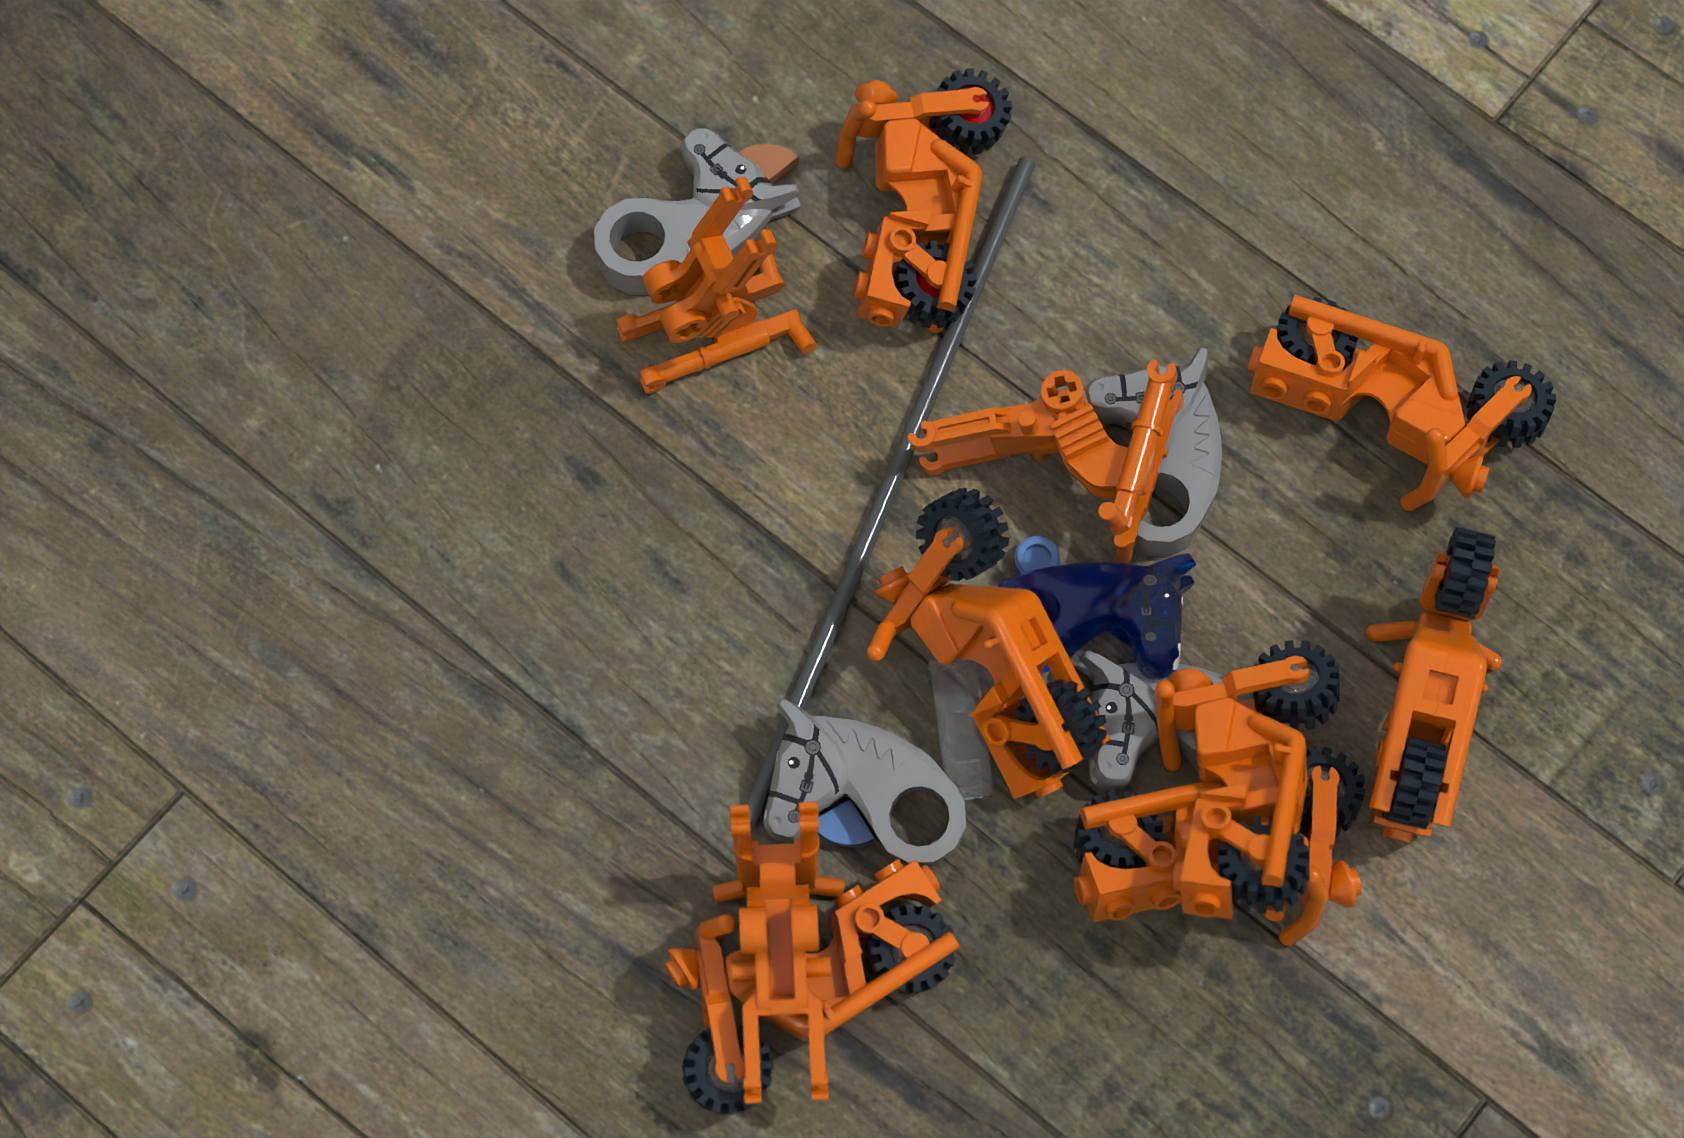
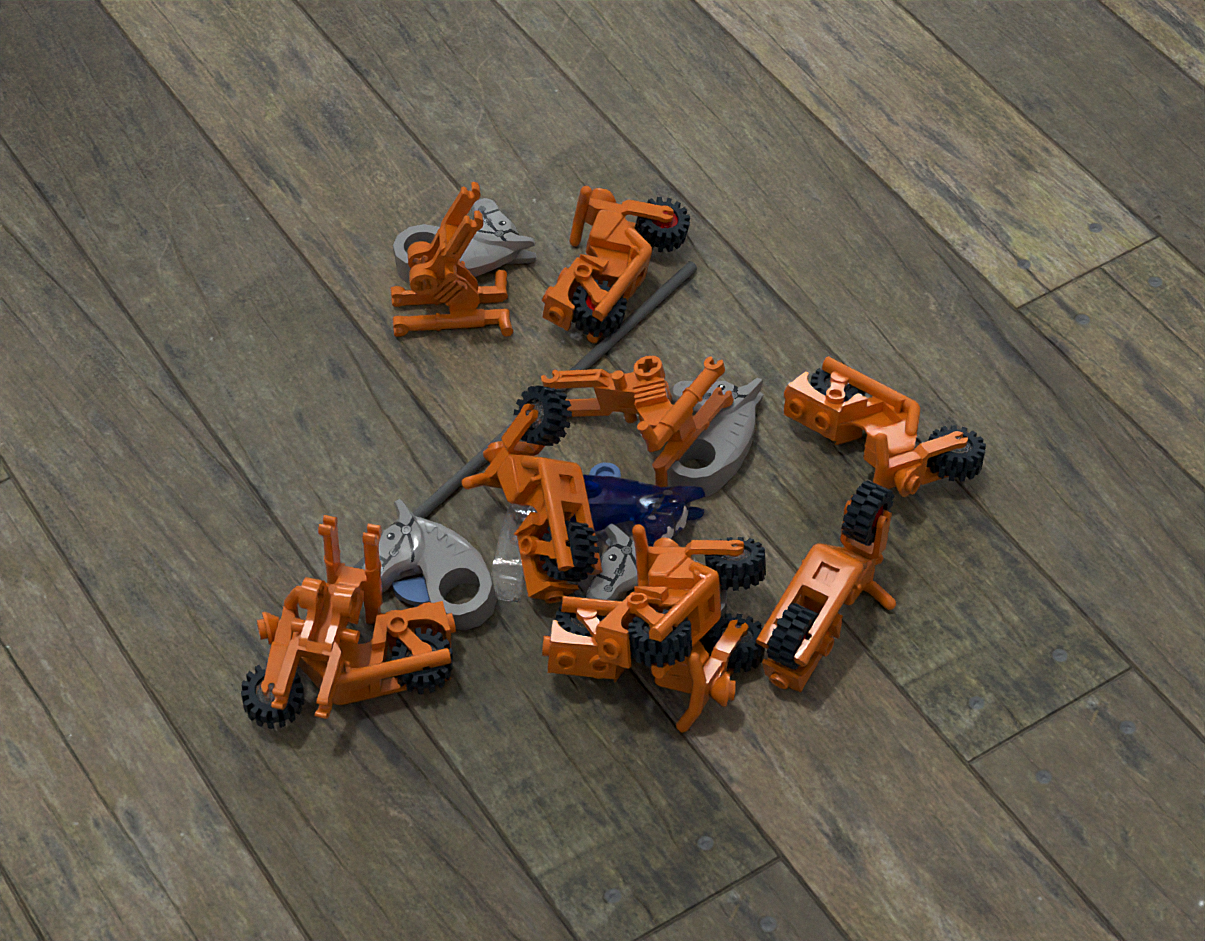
camera: 20 degrees right, 20 degrees down
(771, 159) = (530, 229): nougat tile -> none

